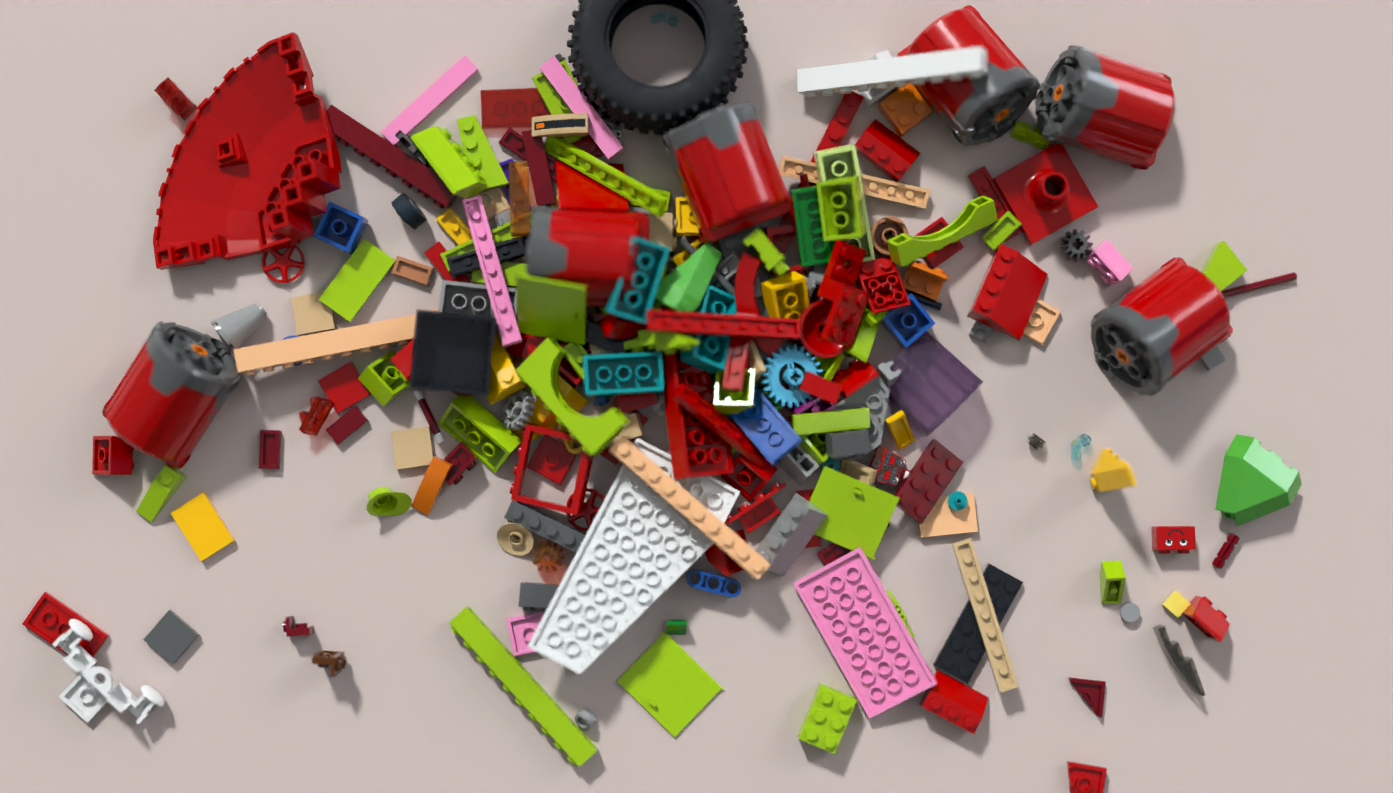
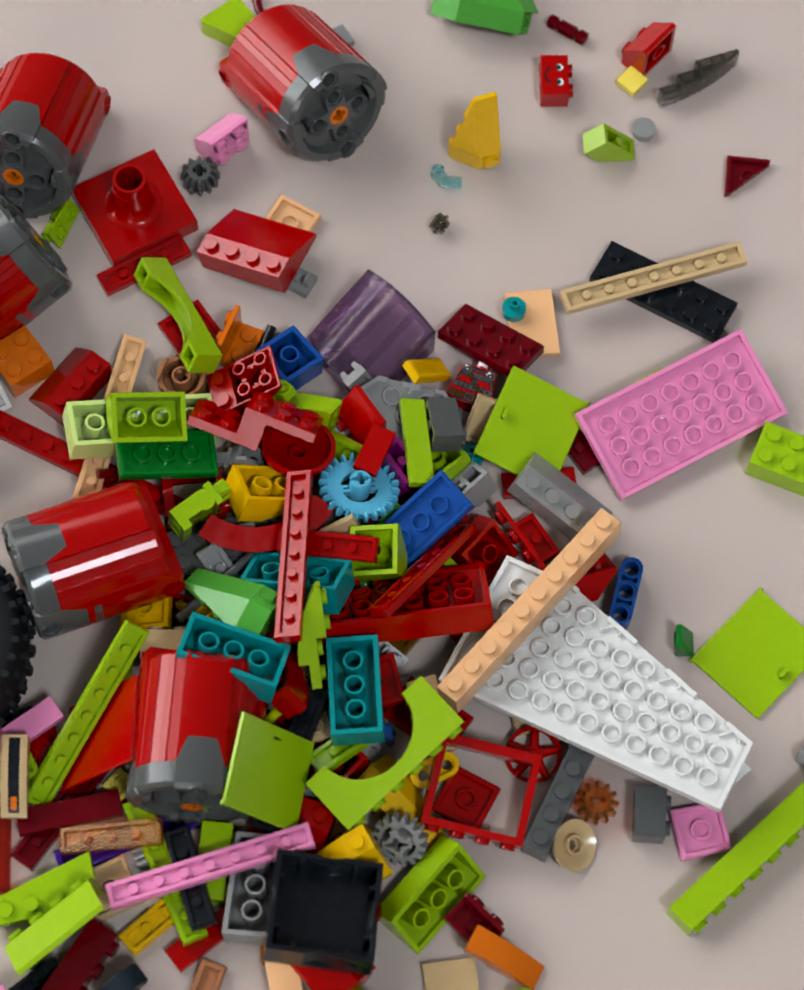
camera: 90 degrees left, 20 degrees down
(429, 417) = (408, 965): dark red bar -> none
(955, 702) = (764, 314): red slope -> none
(1001, 230) = (179, 255): lime tile -> none

